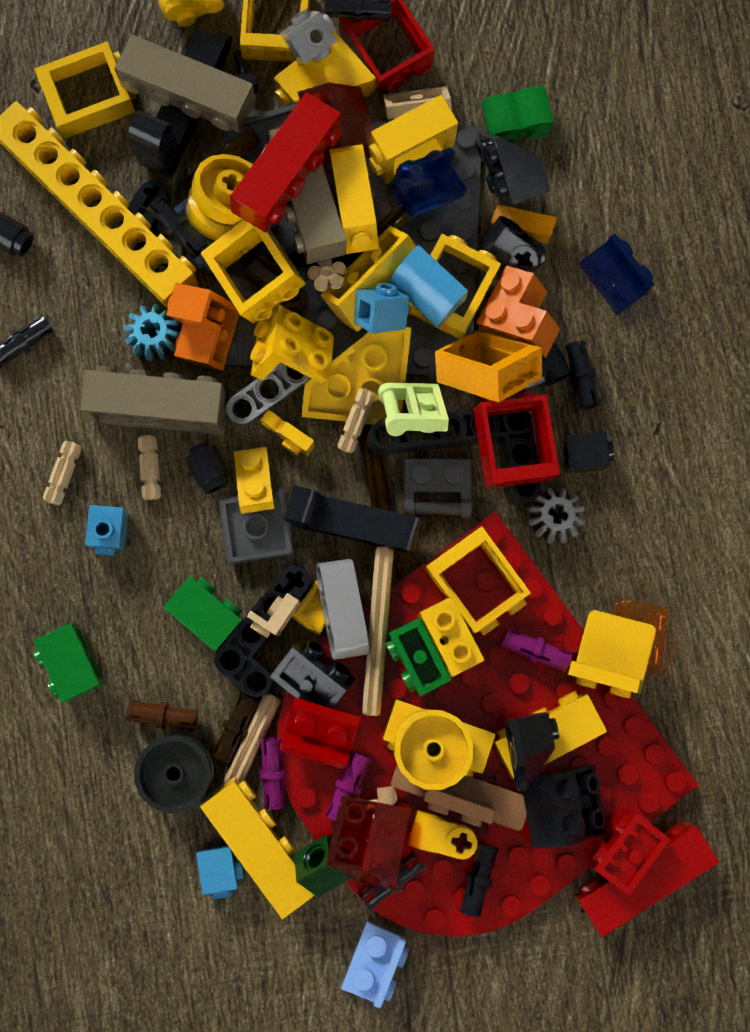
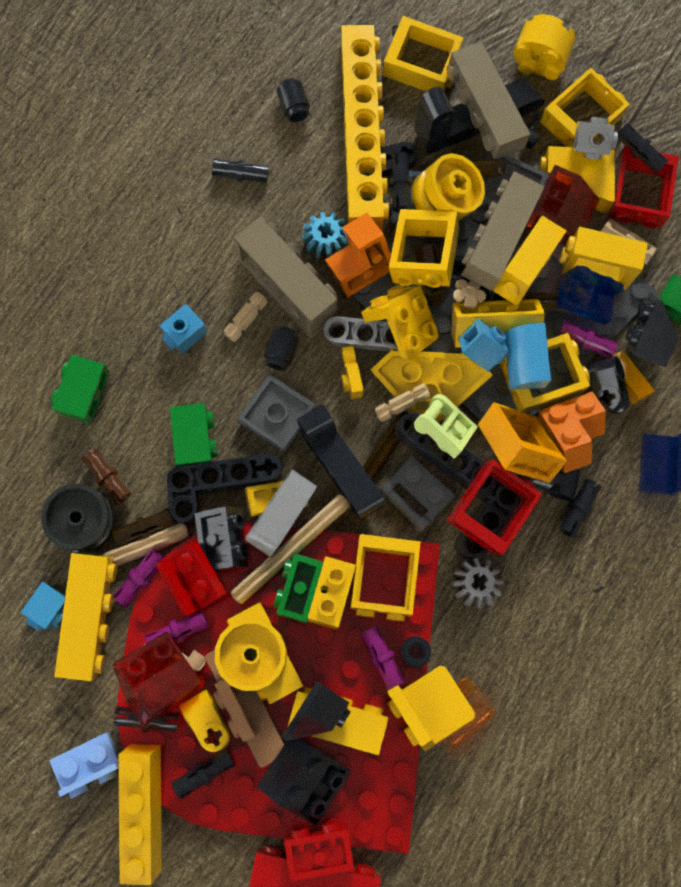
camera: 40 degrees right, 5 degrees down
(62, 473) = (189, 271): tan axle -> none
(253, 480) = (302, 382): yellow plate -> none
(280, 611) = (239, 478): tan bracket -> none
(286, 162) = (505, 197): red brick -> none
(312, 868) = (100, 664): dark green brick -> none
(458, 959) = (140, 814): none -> yellow brick
(461, 221) = (589, 339): none -> magenta pin
(568, 615) = (424, 647): none -> black plate
(587, 452) = (536, 560): black brick -> none

